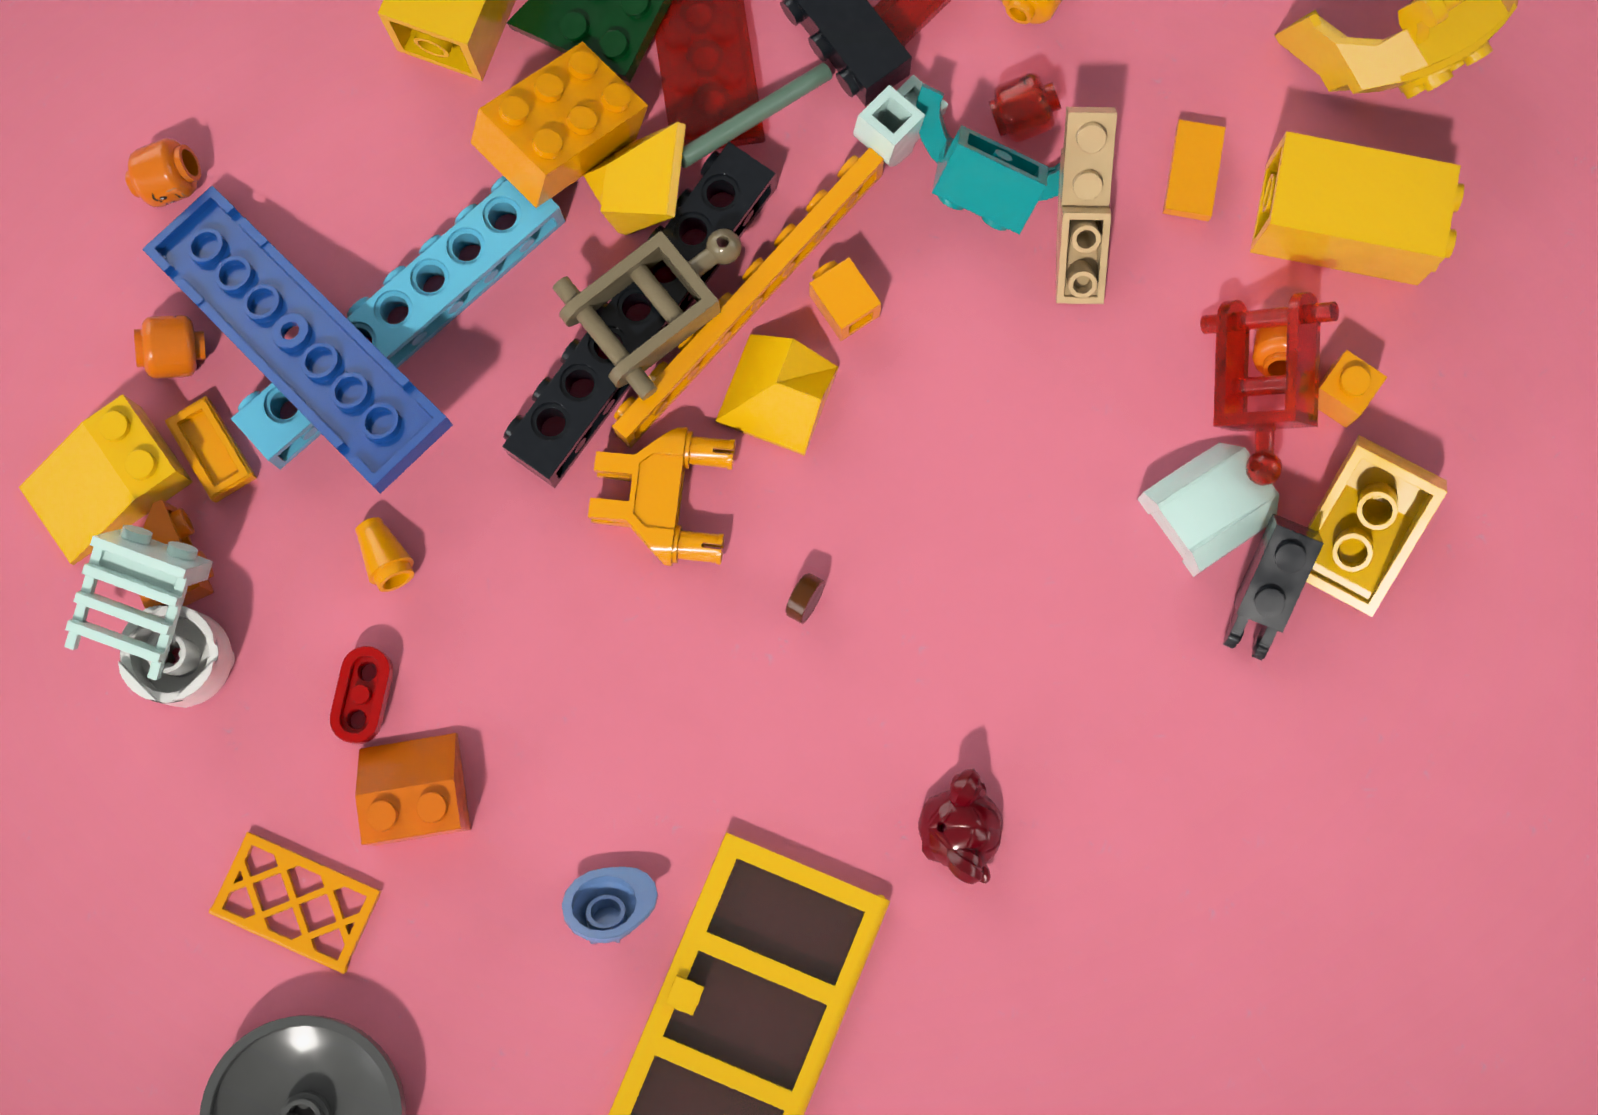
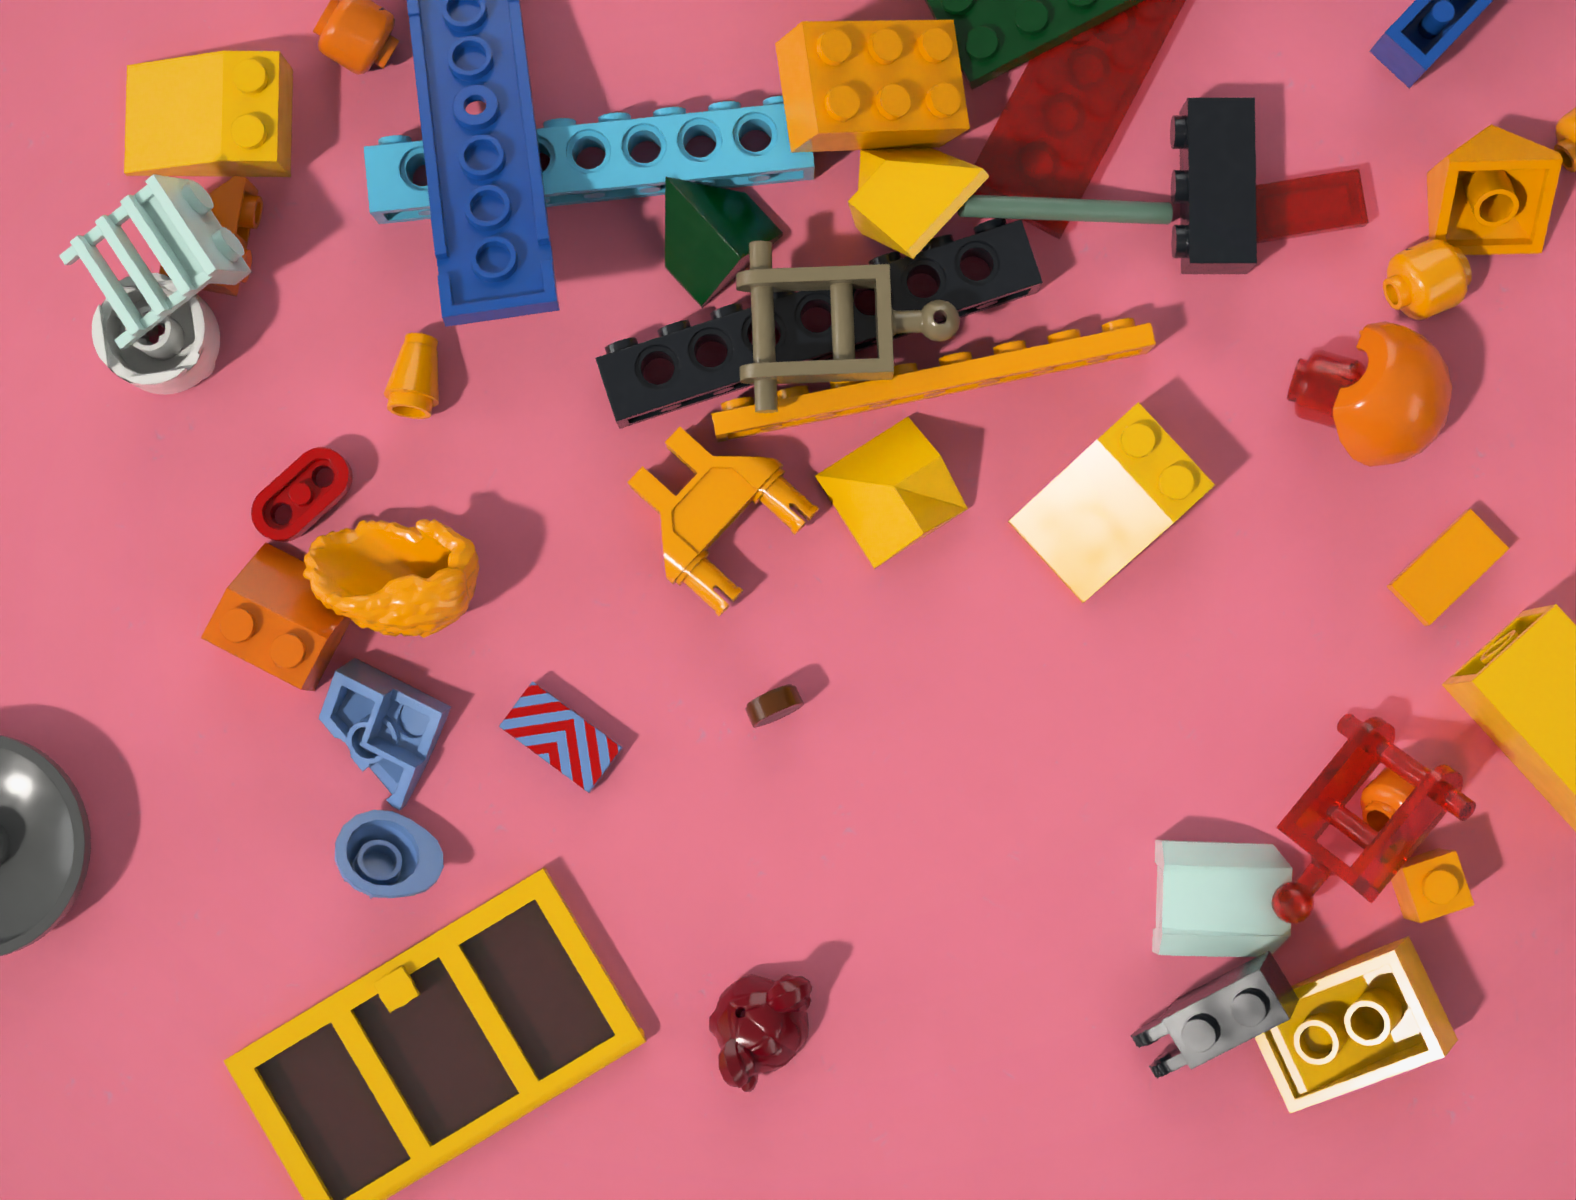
camera: 35 degrees right, 5 degrees up
(210, 449) = (327, 158): light orange tile -> none
(286, 861) = (155, 643): light orange window -> none
(470, 700) = (394, 575): none -> light orange hair
(521, 310) = (710, 235): none -> dark green slope
(540, 815) = (384, 725): none -> medium blue slope
(671, 730) = (561, 737): none -> tile
(844, 297) = (1020, 447): light orange brick -> none
(893, 122) = (1200, 315): light aqua brick -> none
(933, 289) = (1111, 502): none -> slope
(982, 173) = (1237, 435): teal piece -> none
(1073, 71) = (1397, 401): none -> orange cylinder
(1084, 204) = (1314, 528): tan slope -> none

